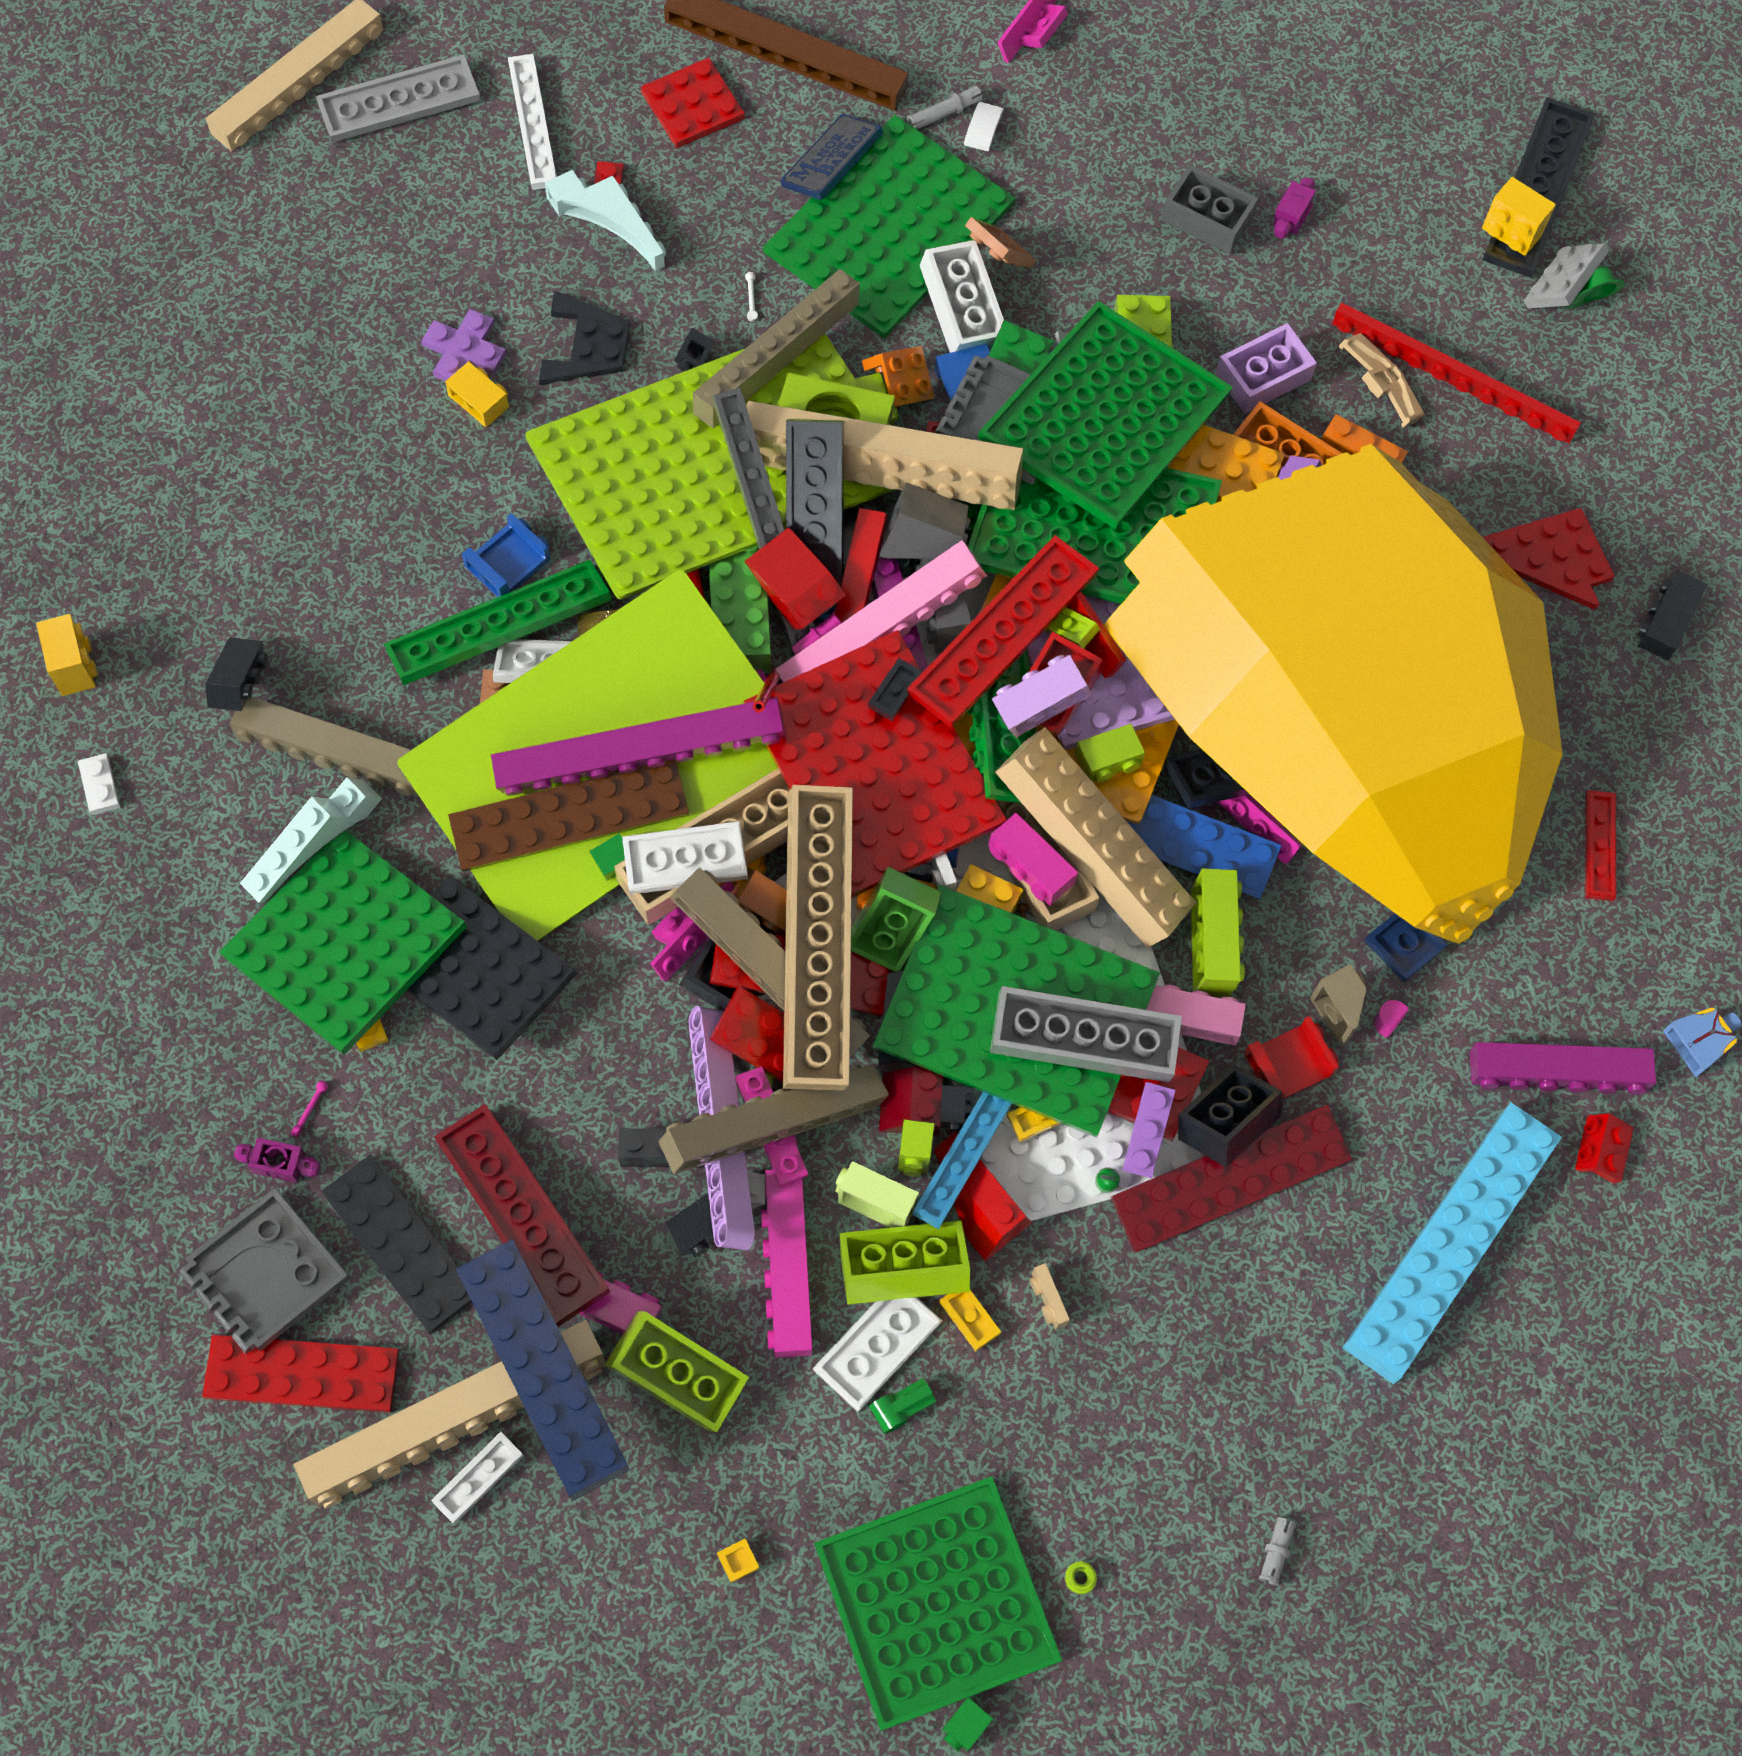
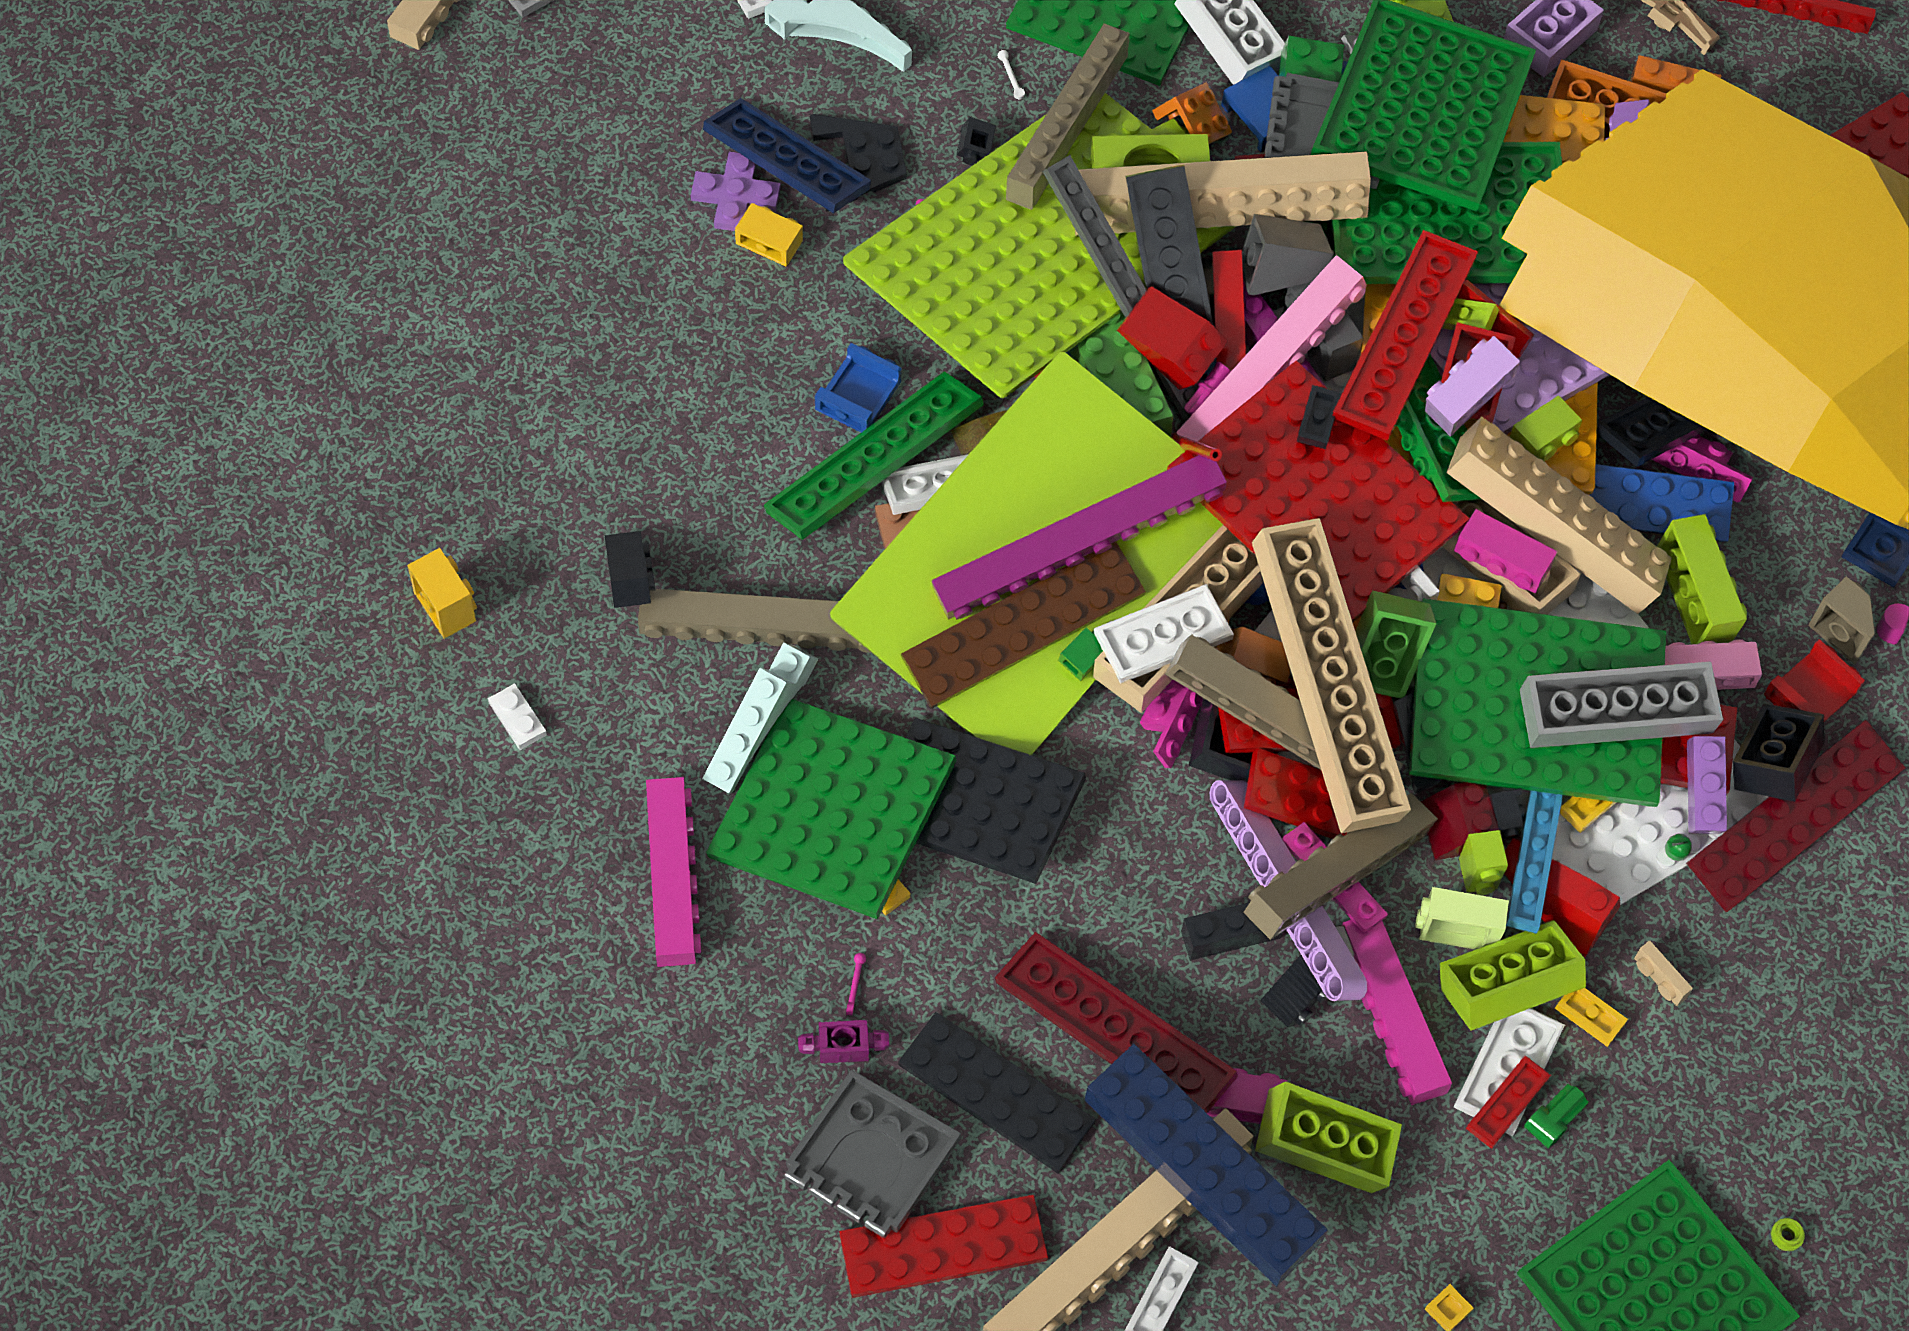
camera: 15 degrees left, 5 degrees down
(180, 962) = (671, 872): none -> dark pink brick
(517, 325) = (787, 155): none -> dark blue plate
(861, 1380) = (1508, 1102): none -> red tile

